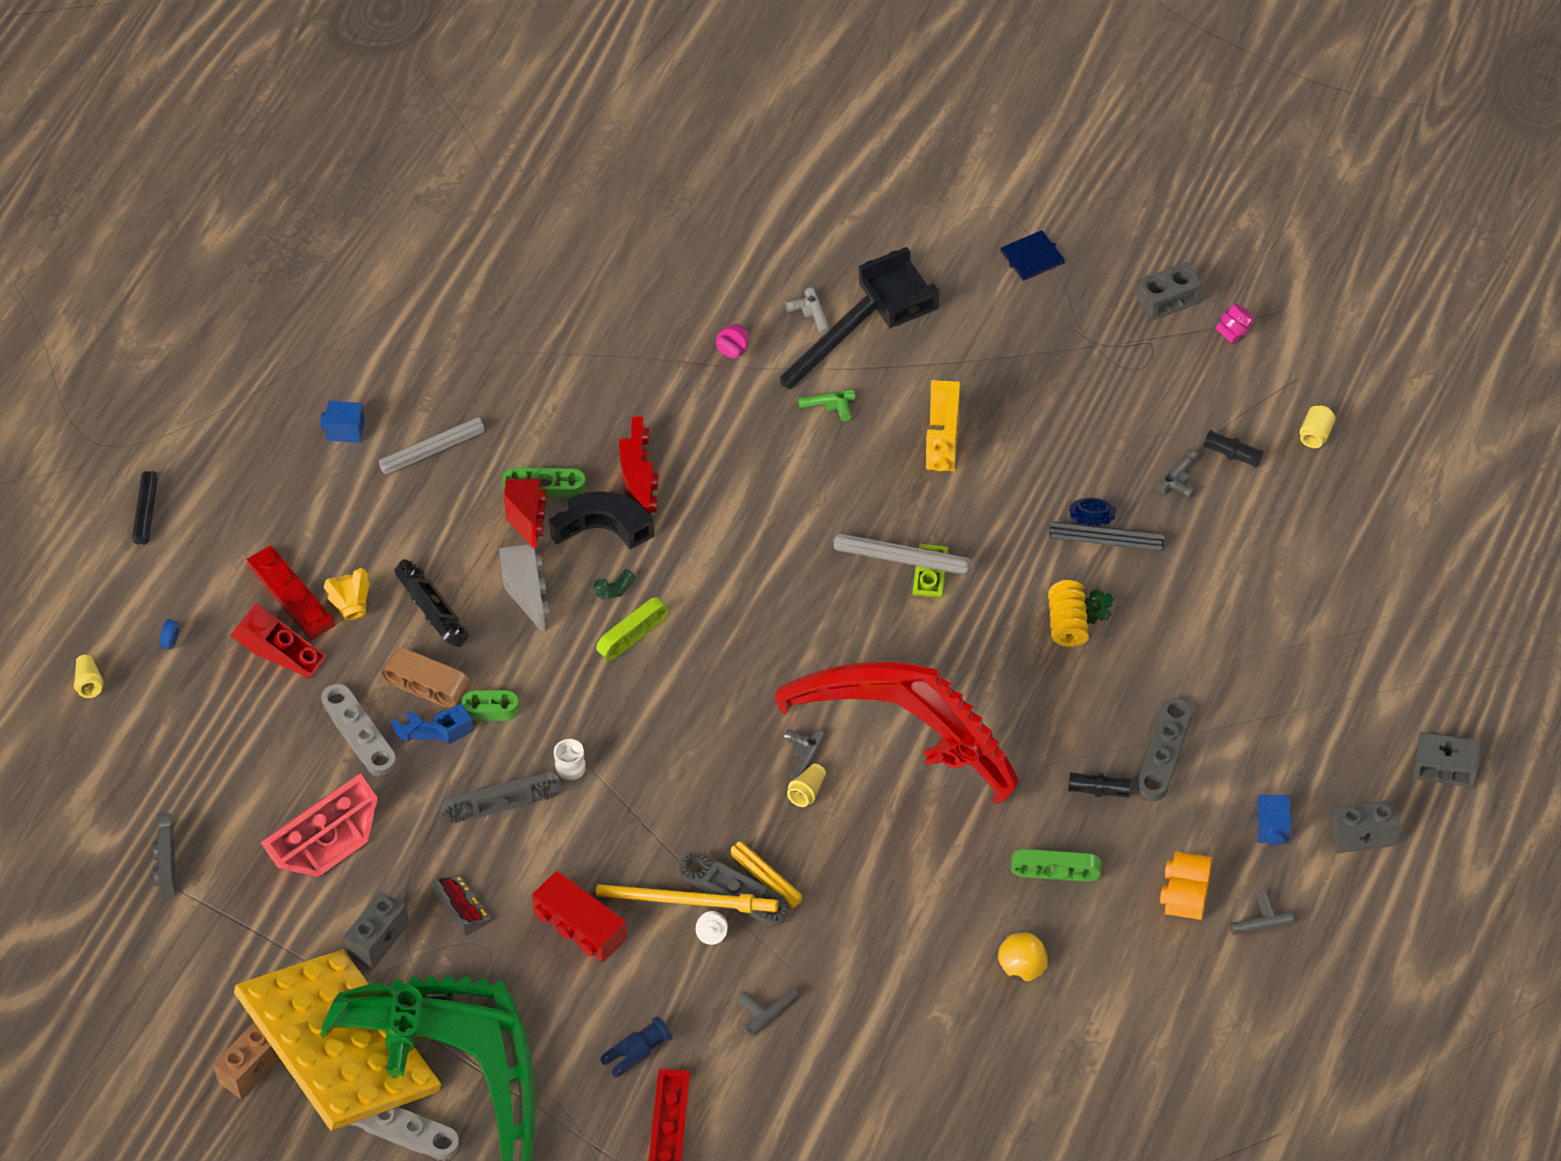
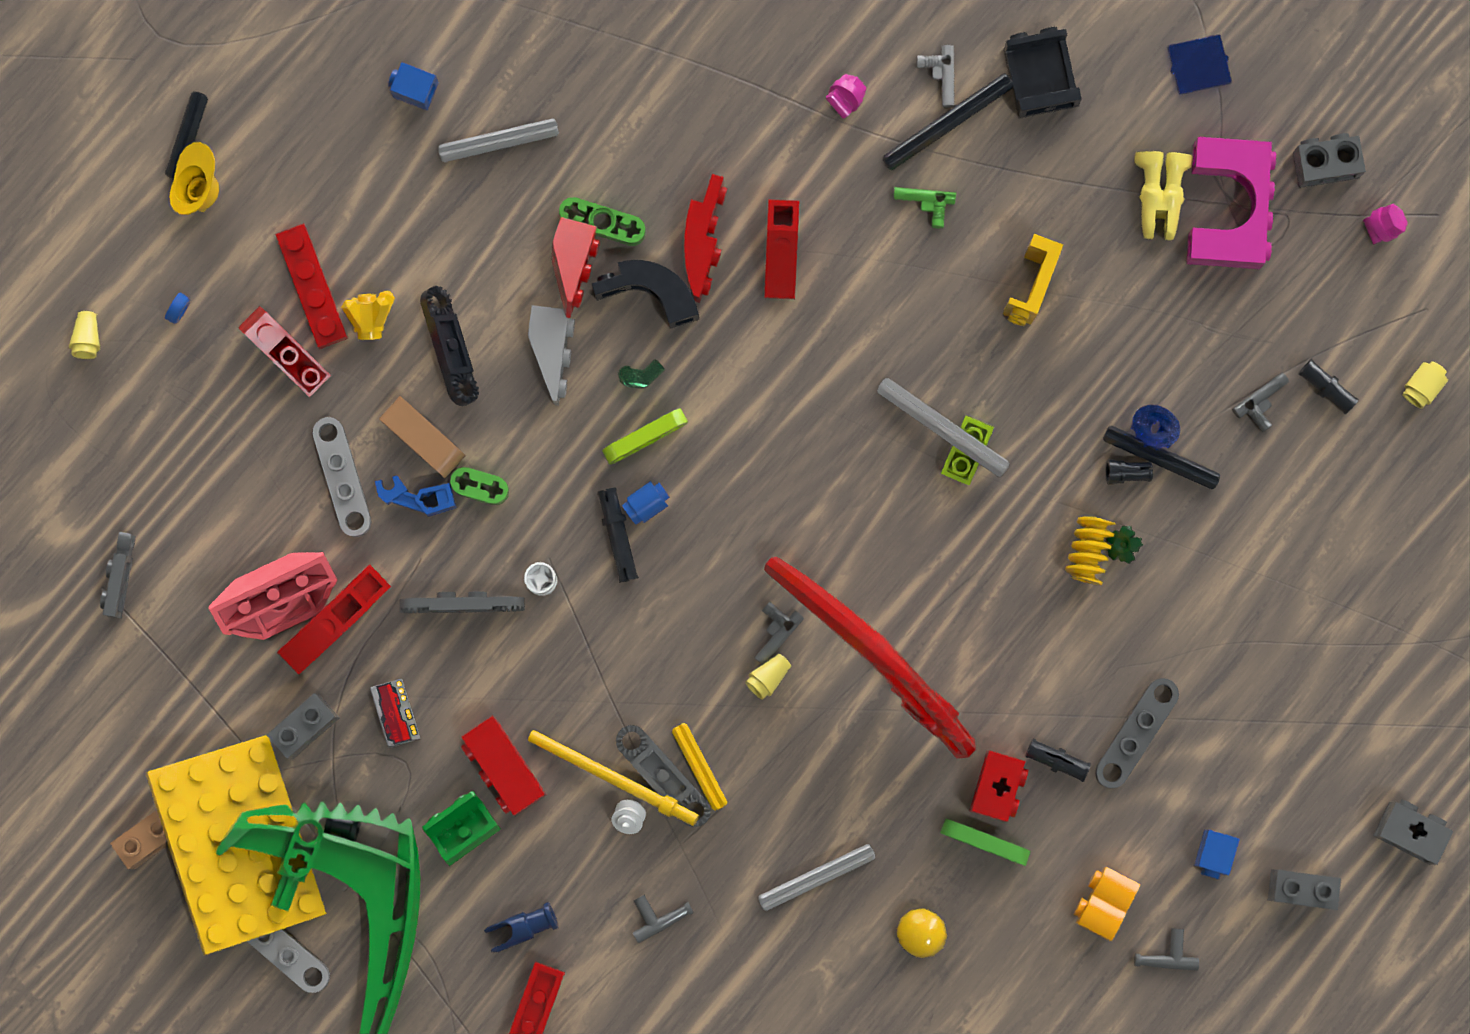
camera: 15 degrees right, 30 degrees up
(162, 530) = (194, 180): none -> yellow piece
(380, 837) = (333, 619): none -> red slope
(551, 975) = (461, 827): none -> green bracket
(625, 701) = (617, 534): none -> black pin
(649, 678) = (646, 502): none -> blue brick
(711, 458) = (781, 249): none -> red slope
(906, 936) = (816, 877): none -> light grey axle
(1032, 354) = (1157, 202): none -> light yellow piece
(1051, 817) = (997, 767): none -> red brick
(1074, 553) = (1135, 471): none -> black pin
(1100, 309) = (1250, 165): none -> dark pink arch

